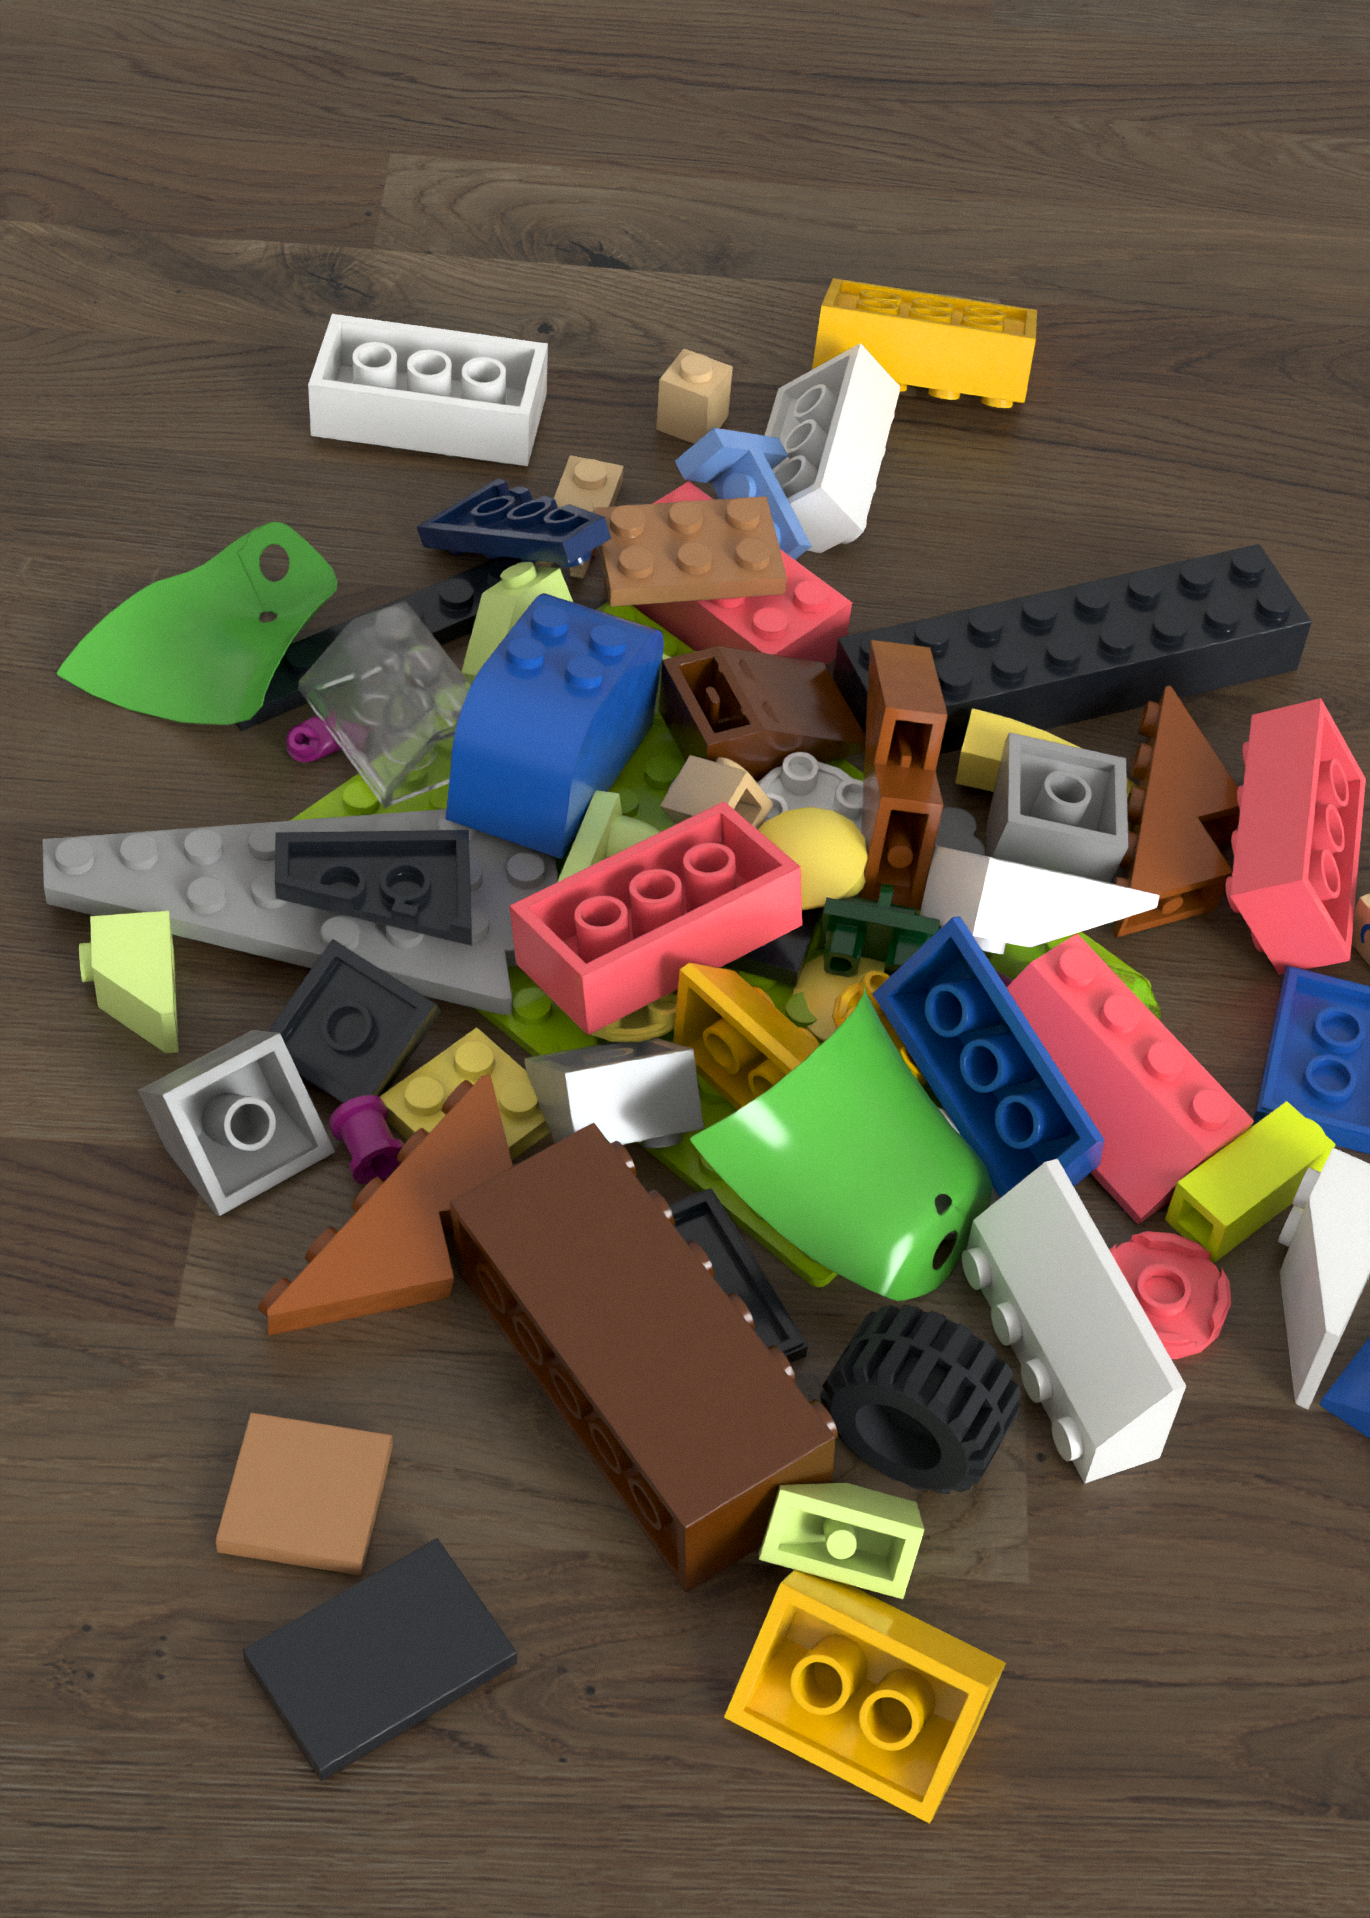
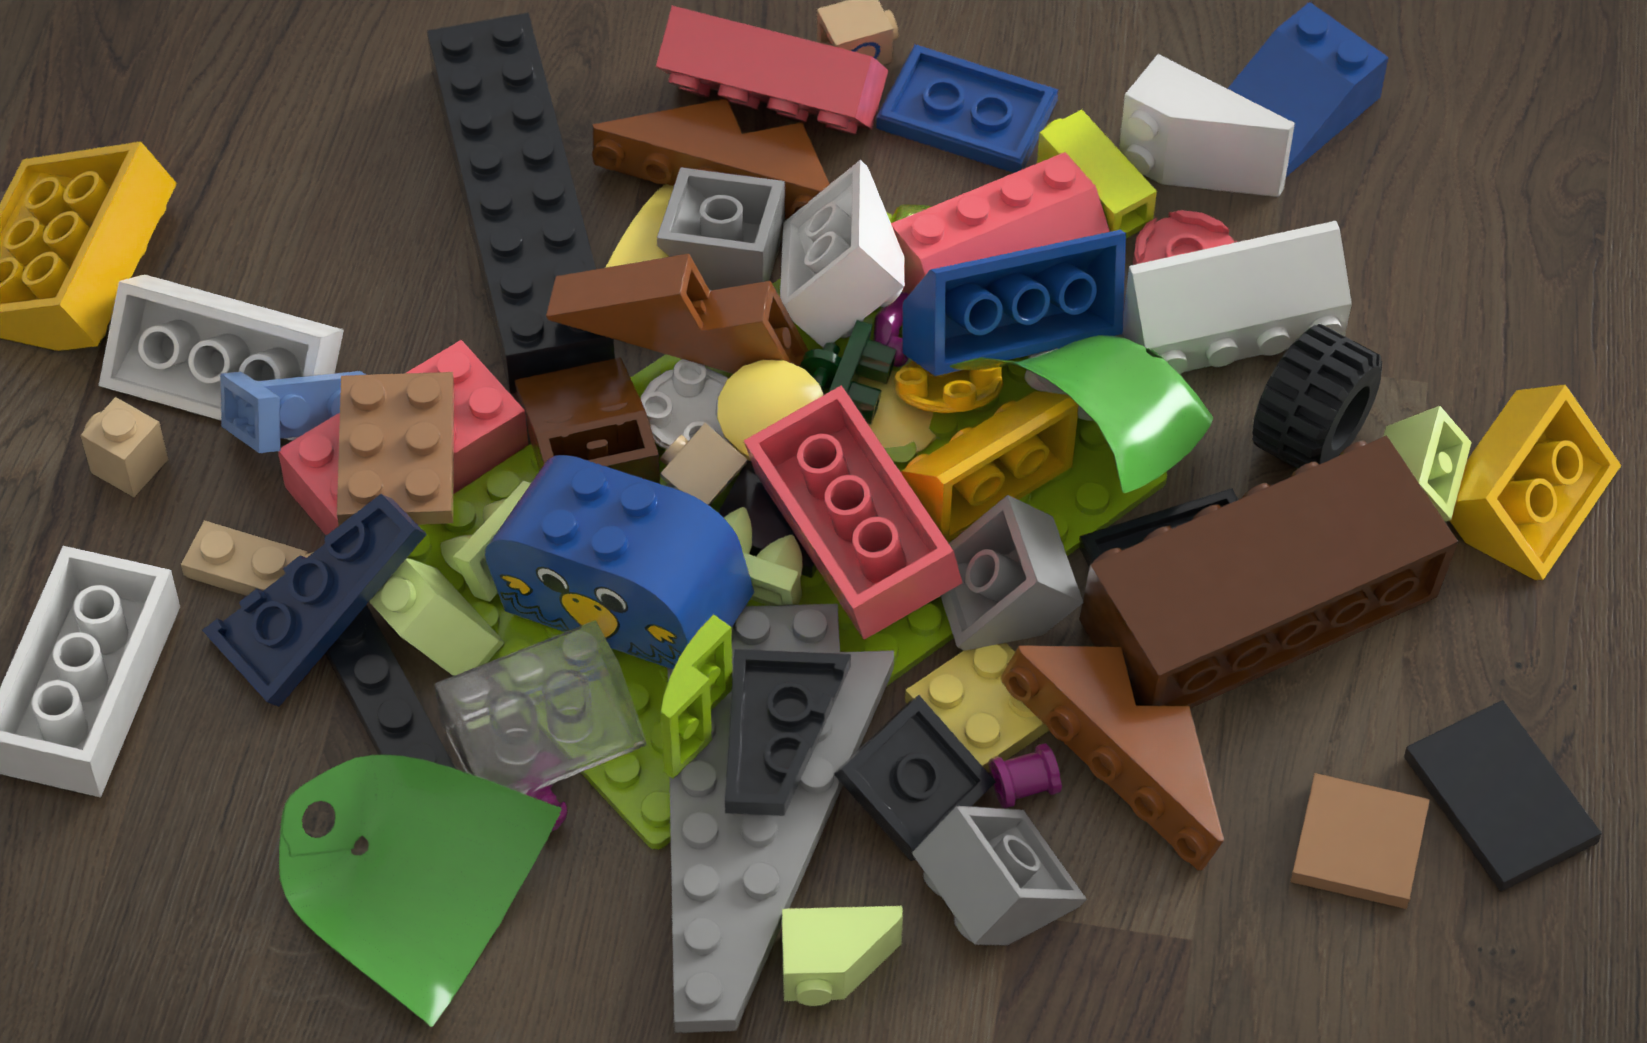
camera: 80 degrees left, 5 degrees up
(386, 778) = (693, 690): none -> lime slope

